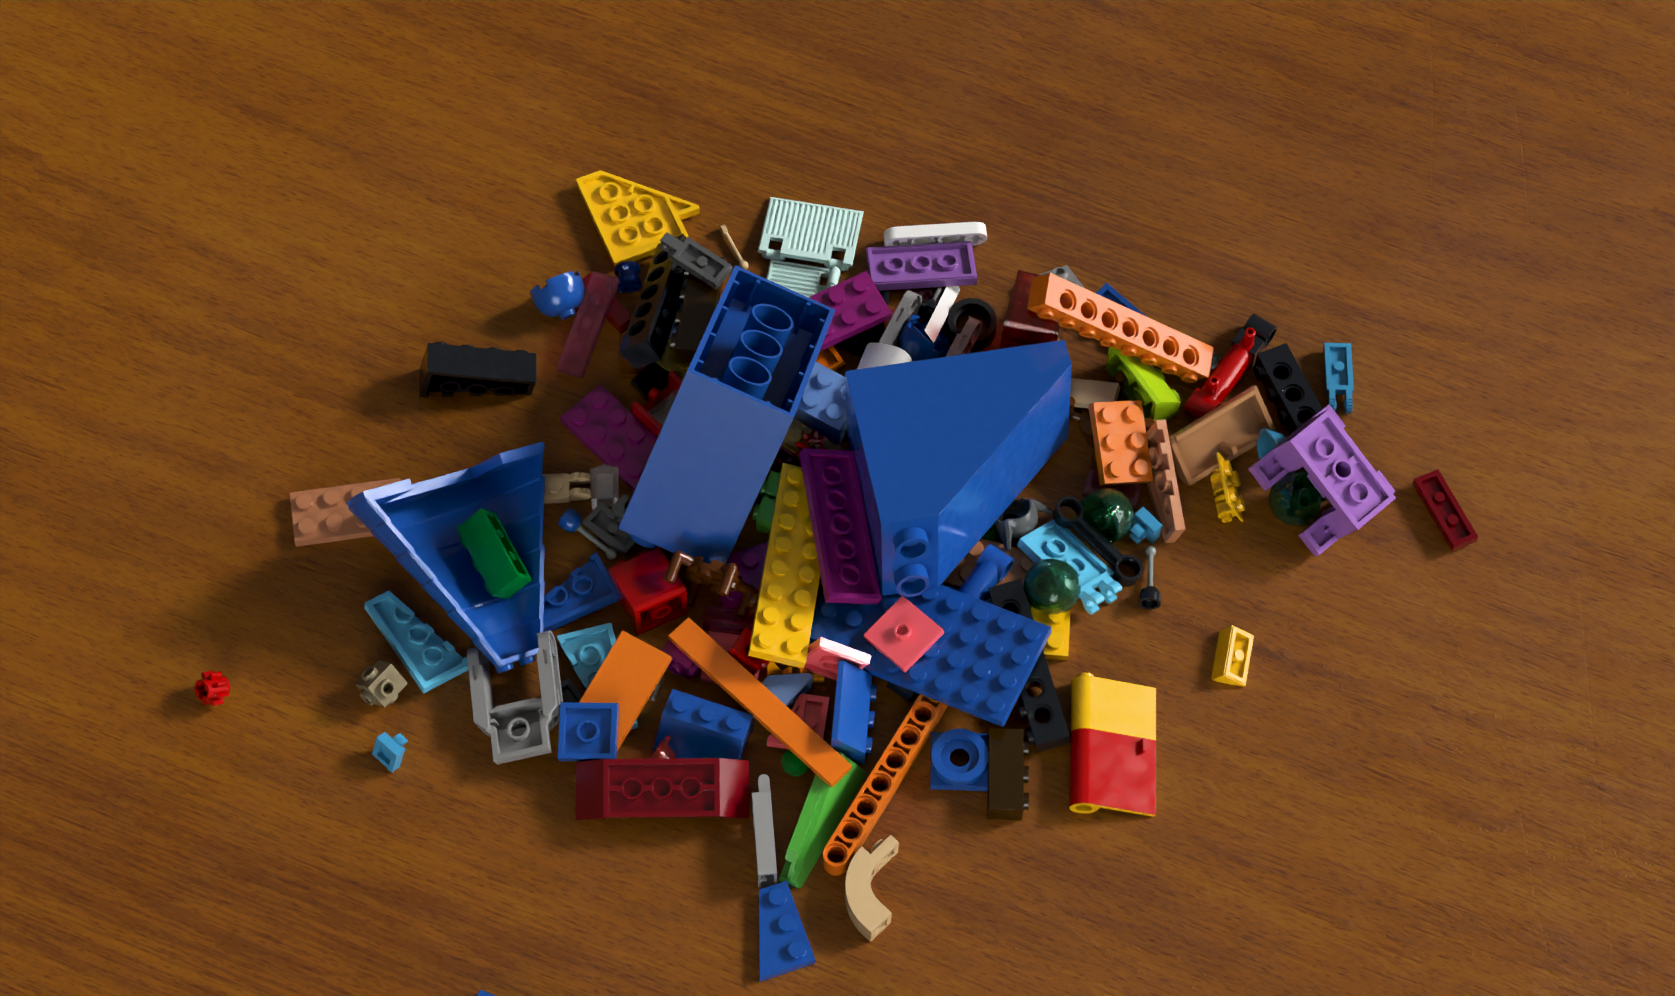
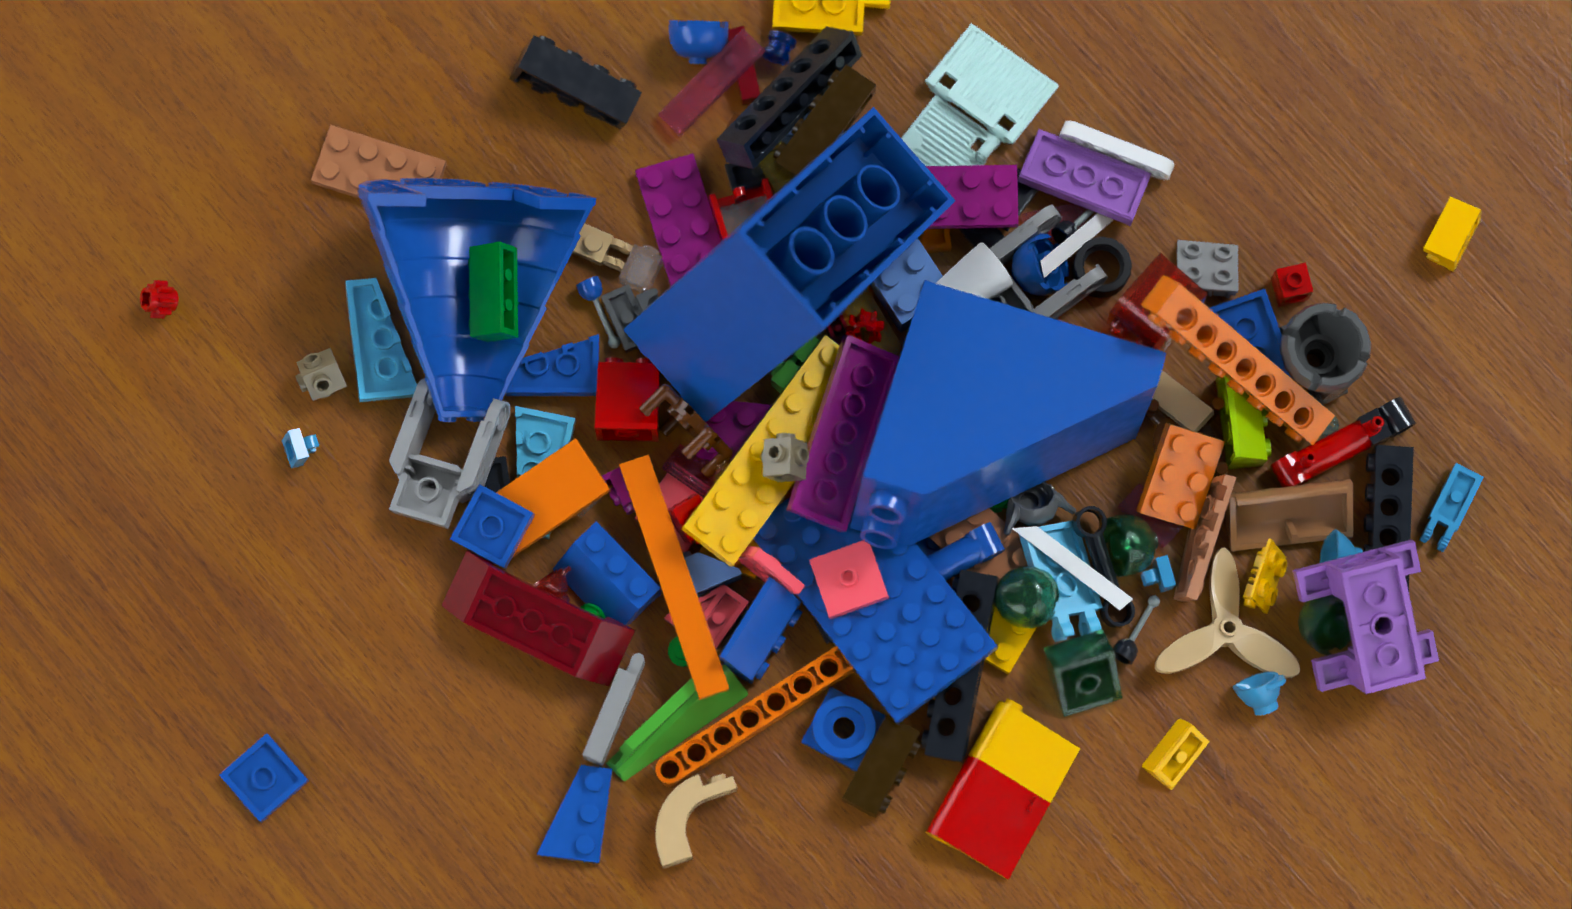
camera: 25 degrees right, 15 degrees up
(696, 259) = (843, 76): dark grey hinge -> none
(724, 231) = (904, 87): tan hinge -> none
(804, 560) = (784, 458): none -> dark tan brick
(1075, 547) = (1075, 566): none -> white sticker
(1125, 271) = (1292, 284): none -> red brick
(1126, 627) = (1083, 672): none -> clear green slope
(1181, 295) = (1338, 342): none -> dark grey piece
(1221, 544) = (1246, 642): none -> tan piece
(1225, 182) = (1452, 233): none -> yellow hinge
(1273, 577) = (1260, 691): none -> dark azure piece
(1445, 510) = (1479, 705): dark red plate -> none

